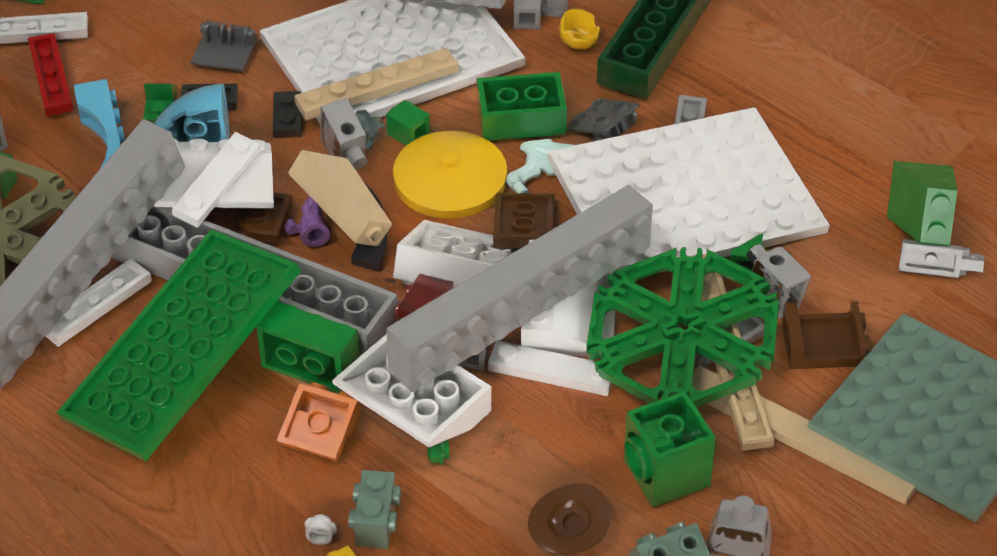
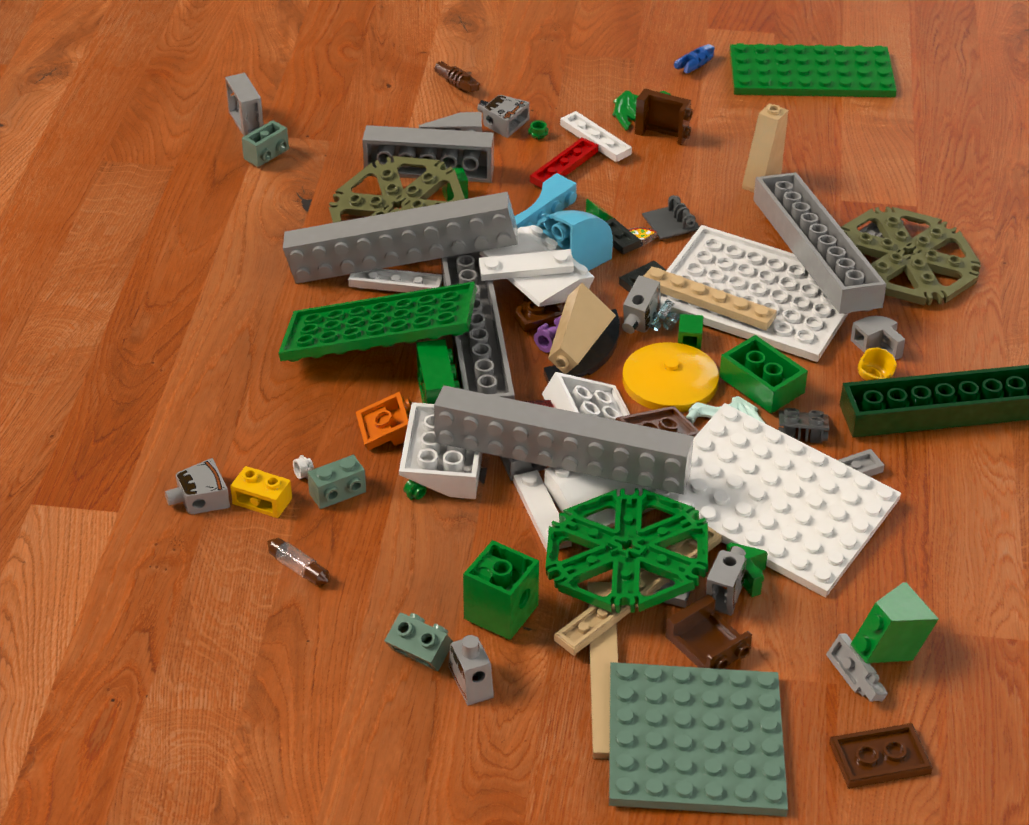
camera: 55 degrees right, 5 degrees down
(223, 76) = (644, 234): none -> tile
(570, 519) = (406, 576): reddish brown hat -> none

